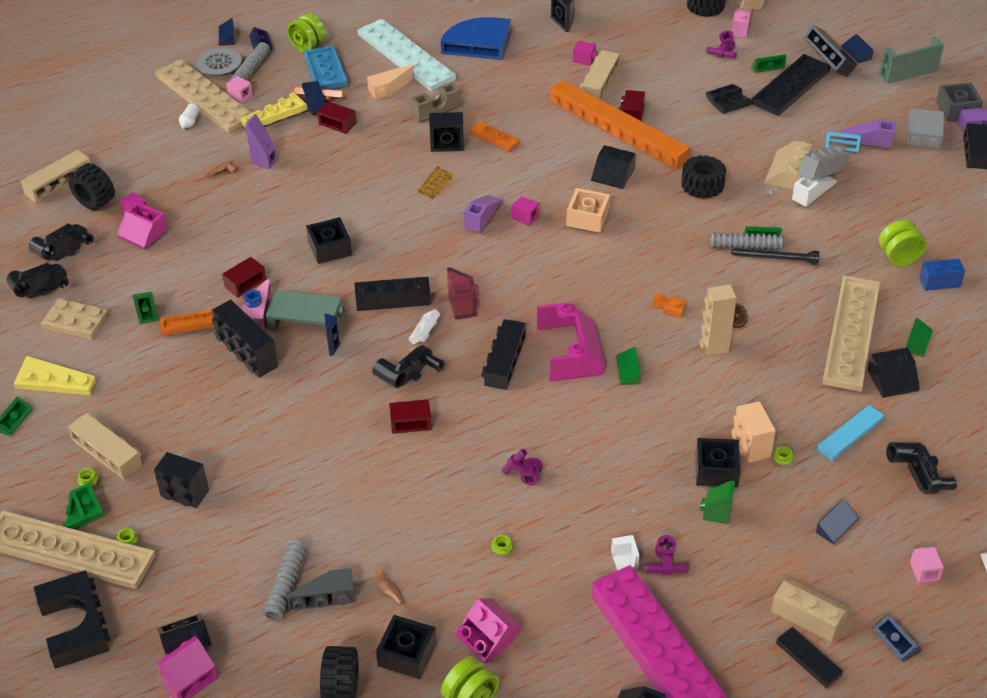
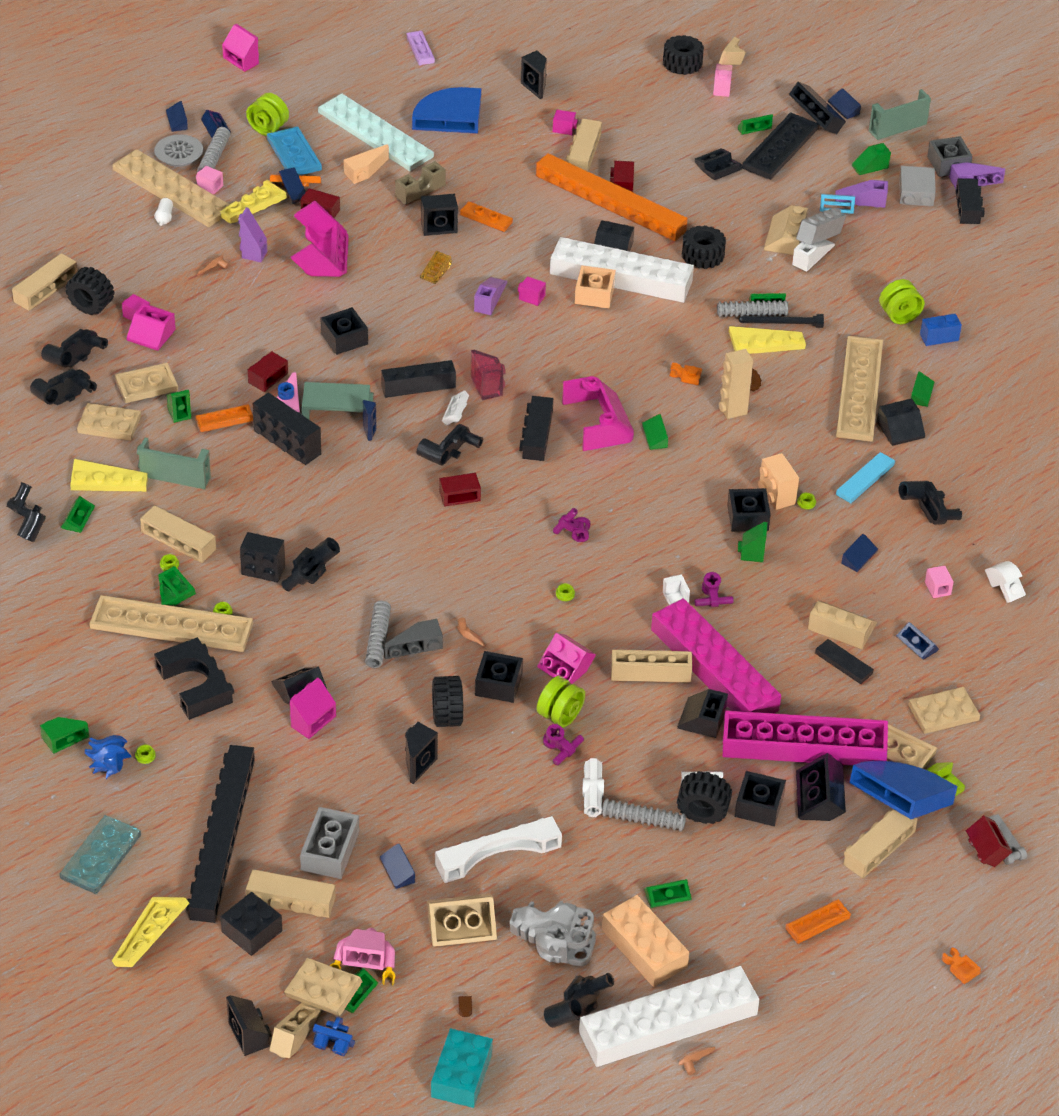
camera: 10 degrees left, 0 degrees up
(122, 281) = (146, 382): none -> tan plate
(124, 375) = (174, 467): none -> sand green panel
(231, 491) = (311, 564): none -> black piece
(338, 154) = (329, 245): none -> dark pink windscreen
(582, 647) = (651, 666): none -> tan brick
(627, 195) = (633, 270): none -> white brick
(726, 46) = (711, 105): magenta piece -> none
(749, 274) = (765, 340): none -> light yellow wing
(881, 101) = (872, 159): none -> green slope

